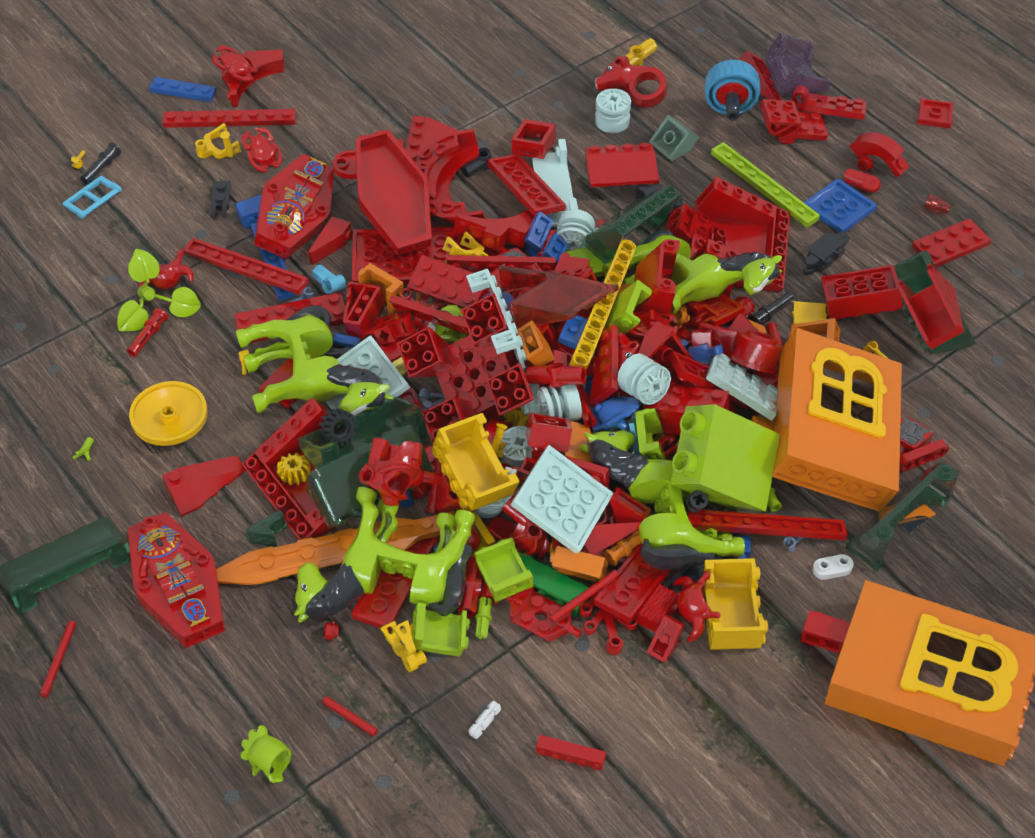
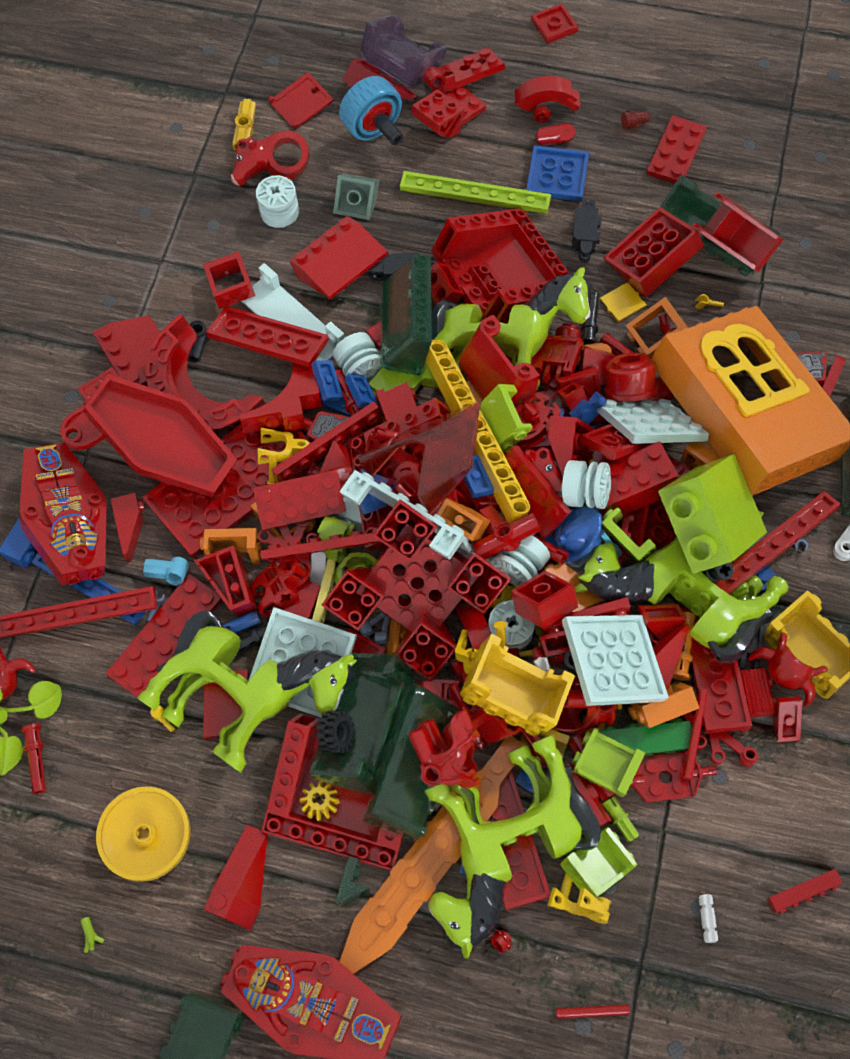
camera: 35 degrees left, 15 degrees up
(691, 62) = (299, 103): none -> red container

